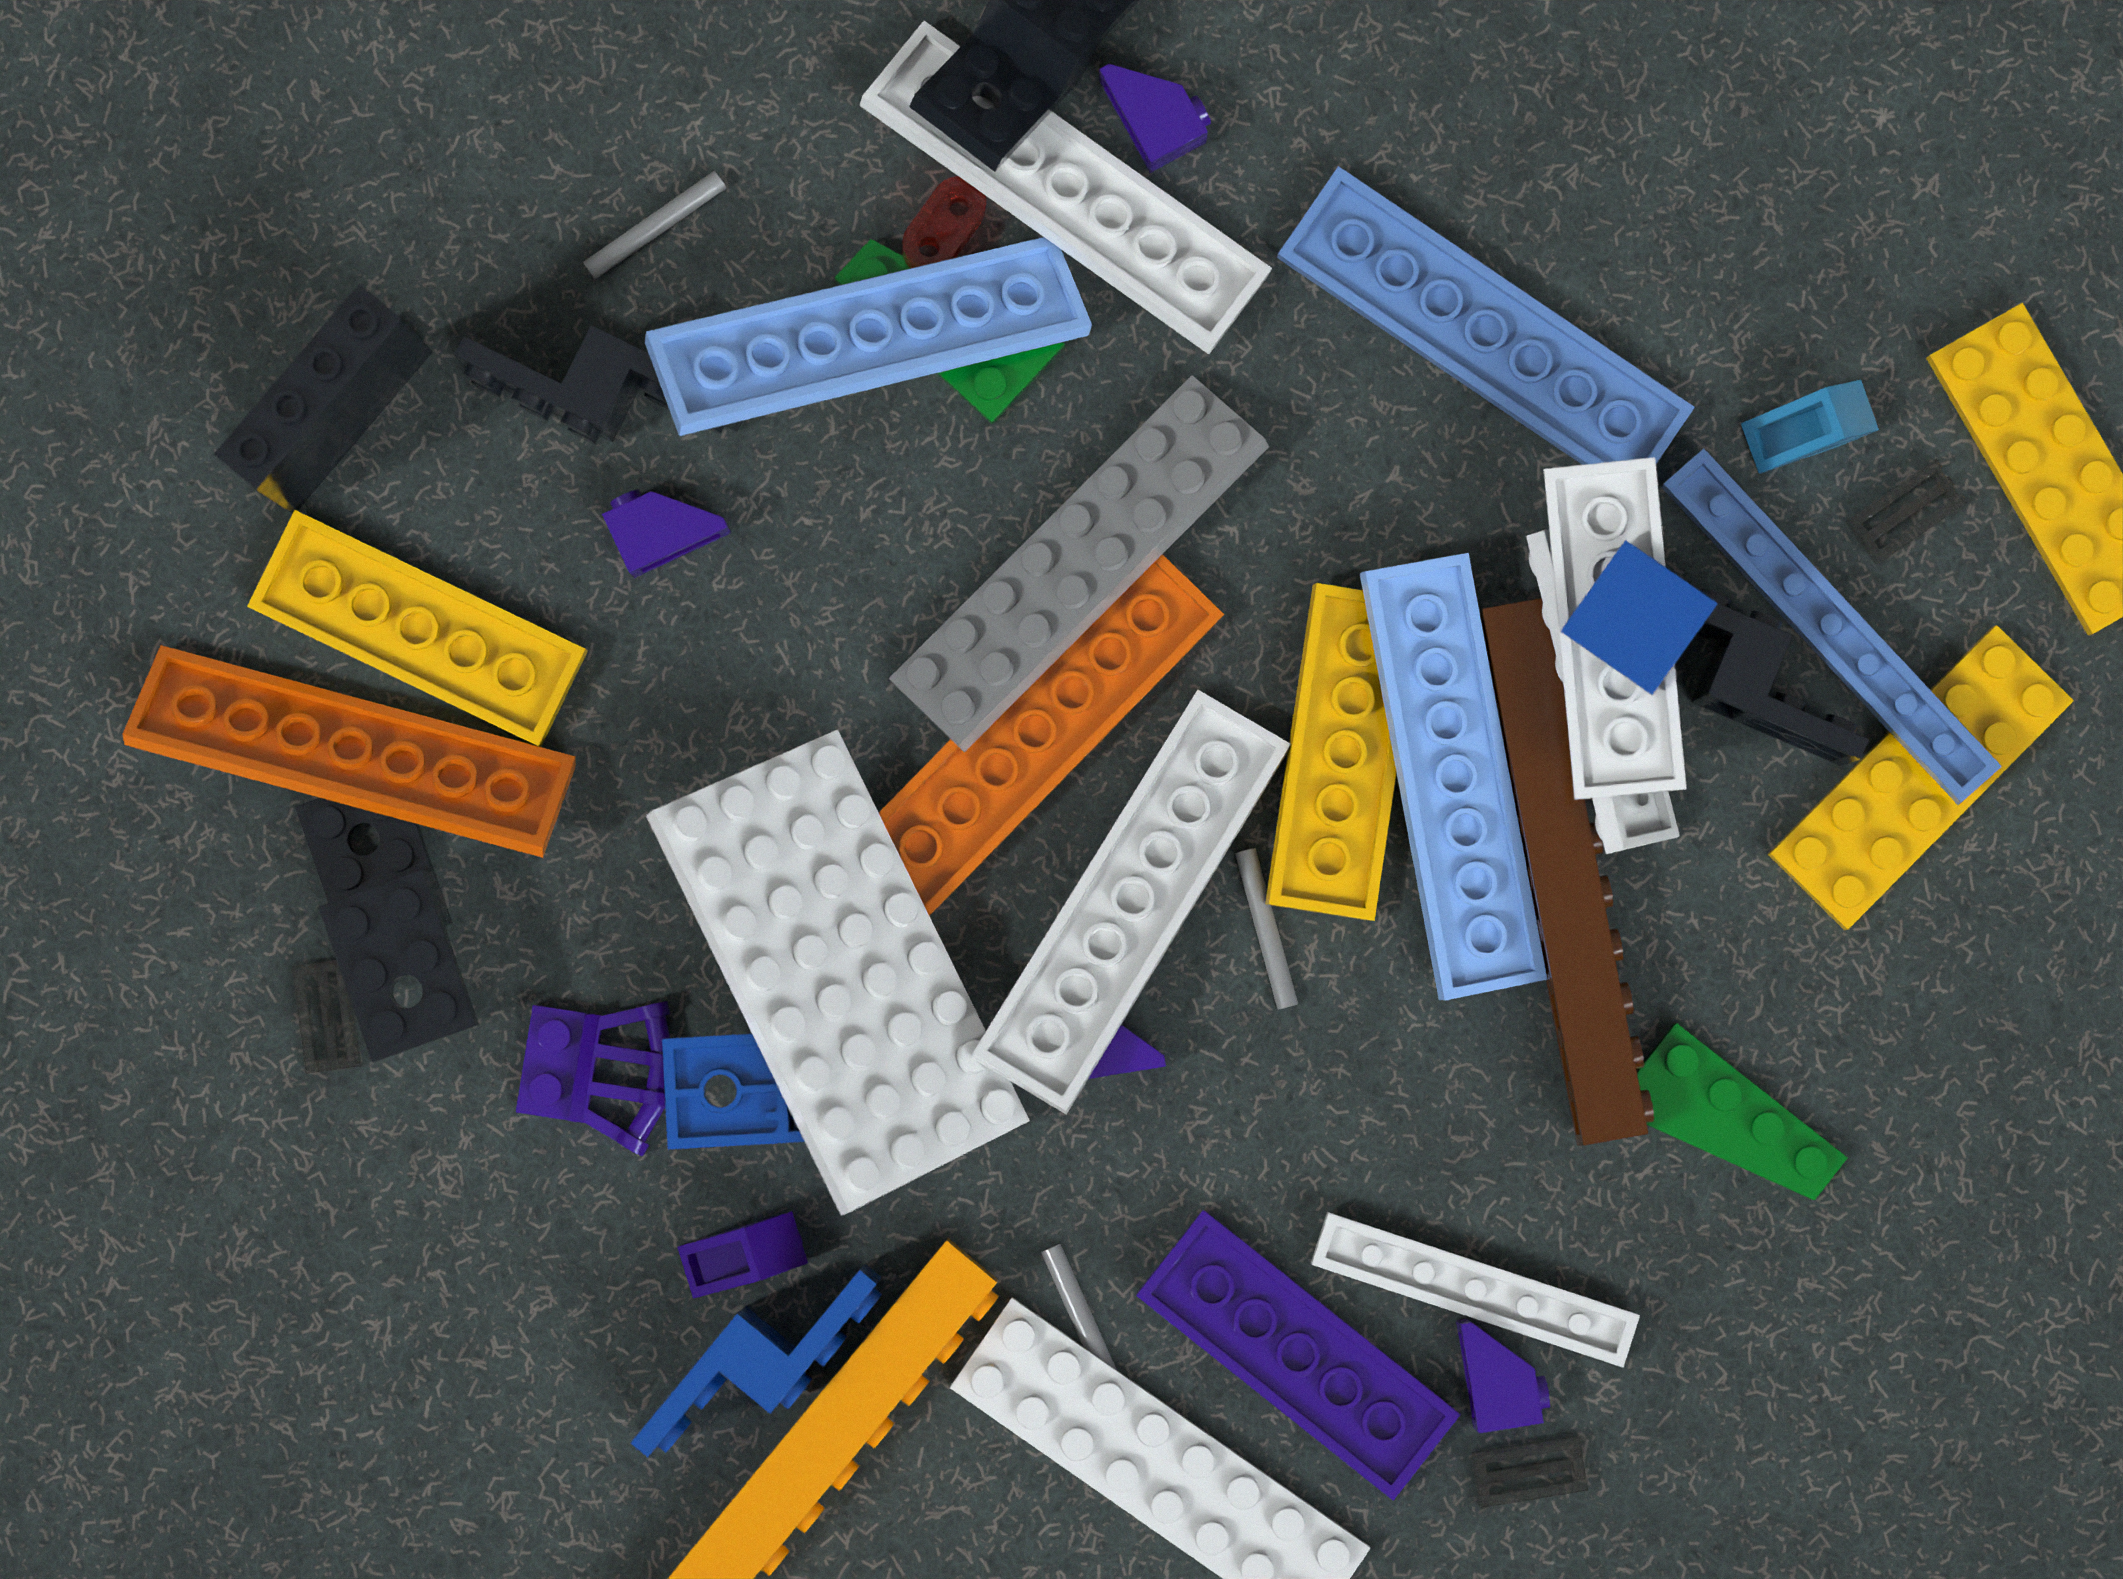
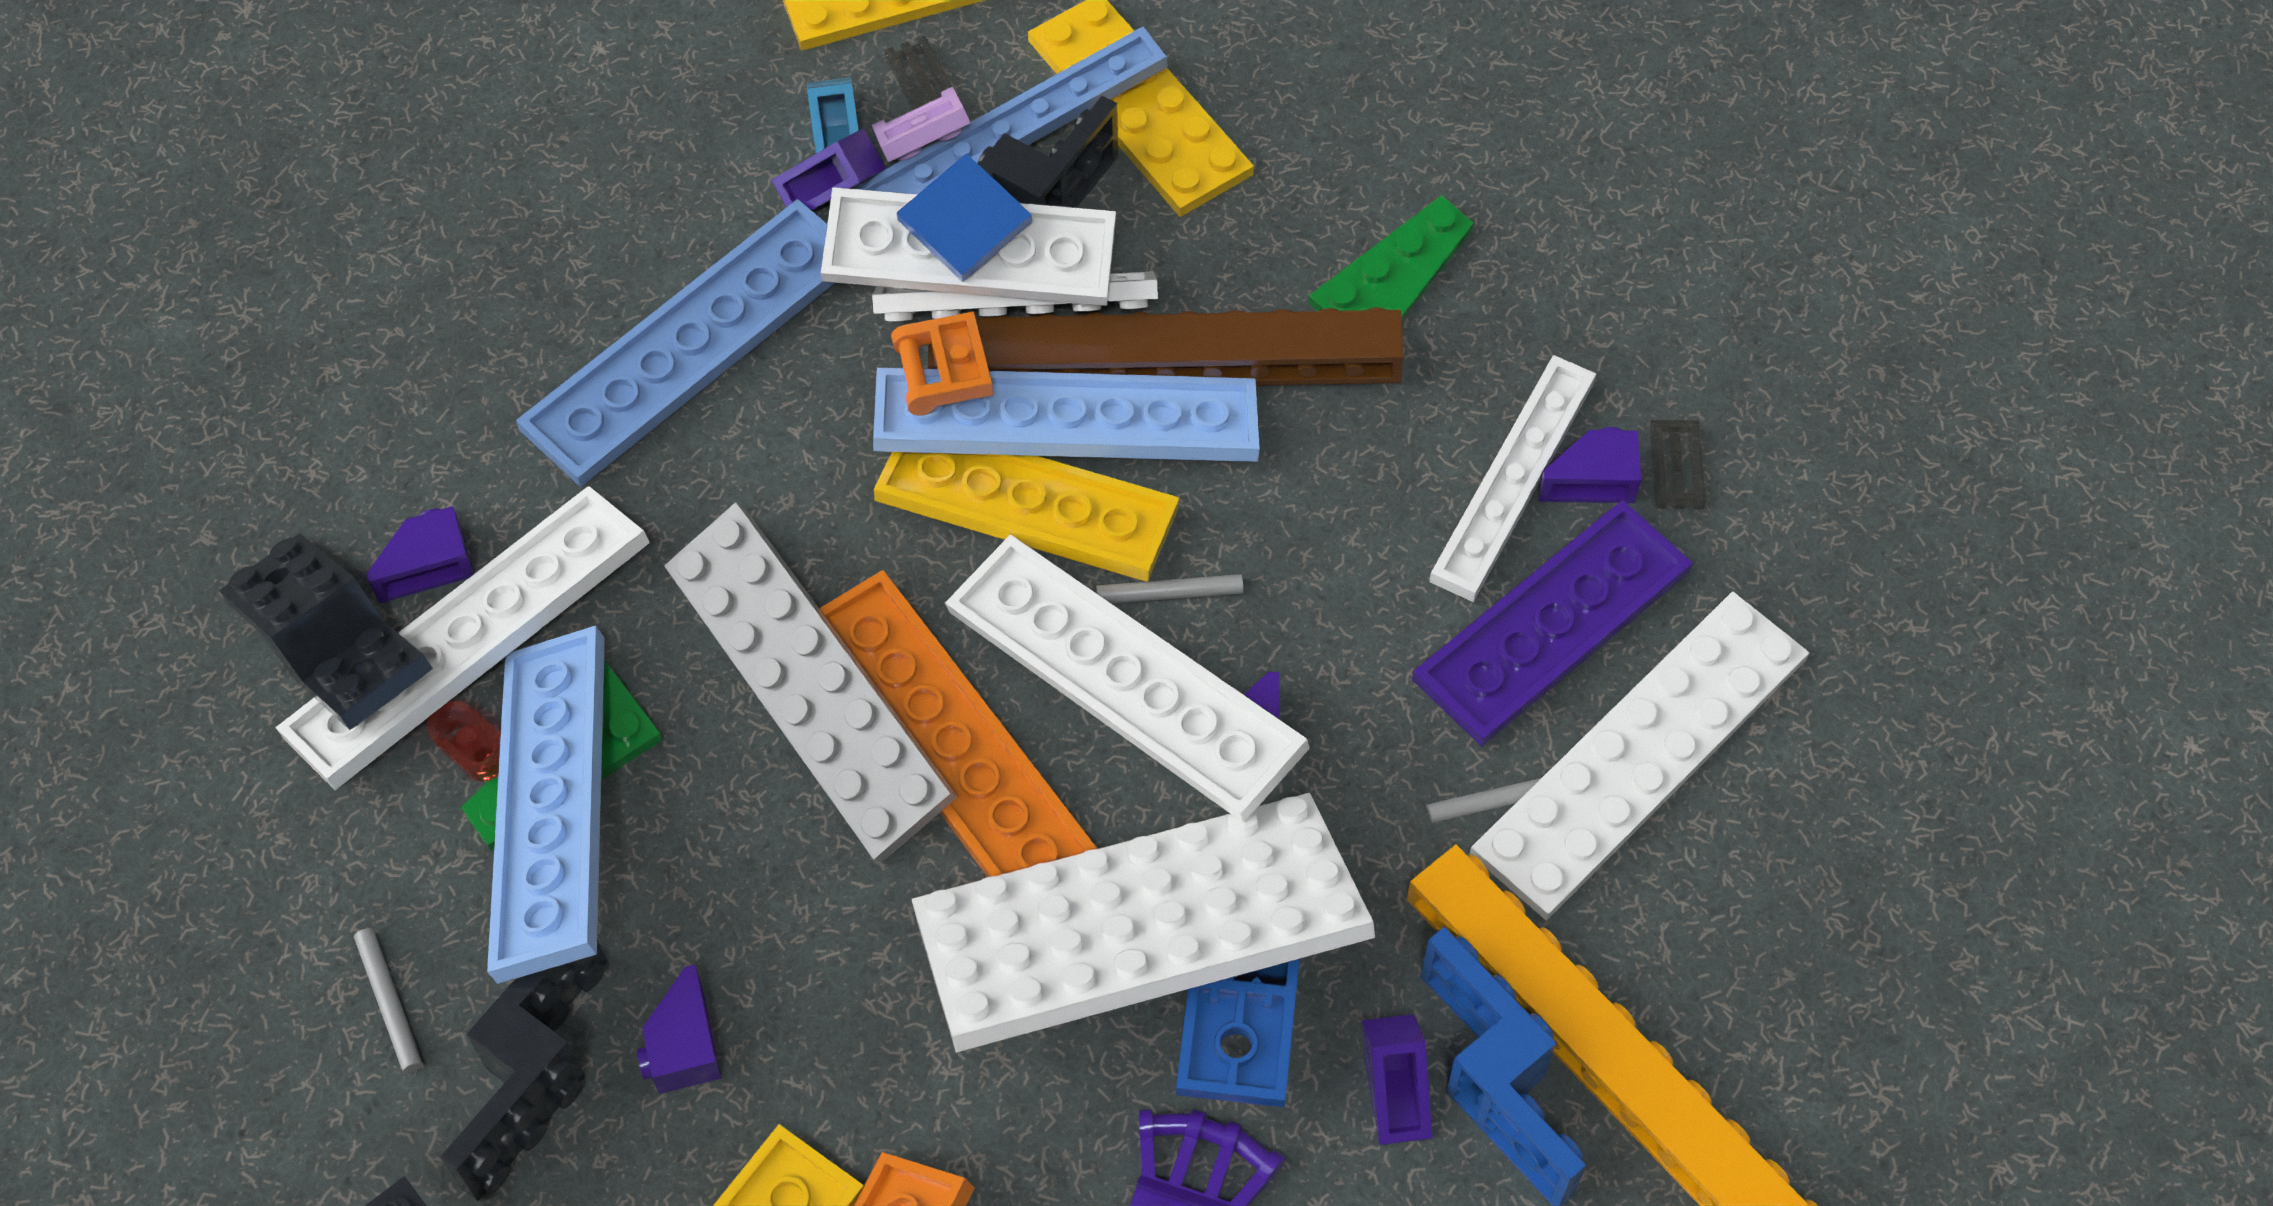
camera: 80 degrees left, 25 degrees down
(1483, 643) = (958, 360): none -> orange plate
(1734, 439) = (836, 166): none -> dark purple slope
(1817, 529) = (935, 120): none -> lavender plate

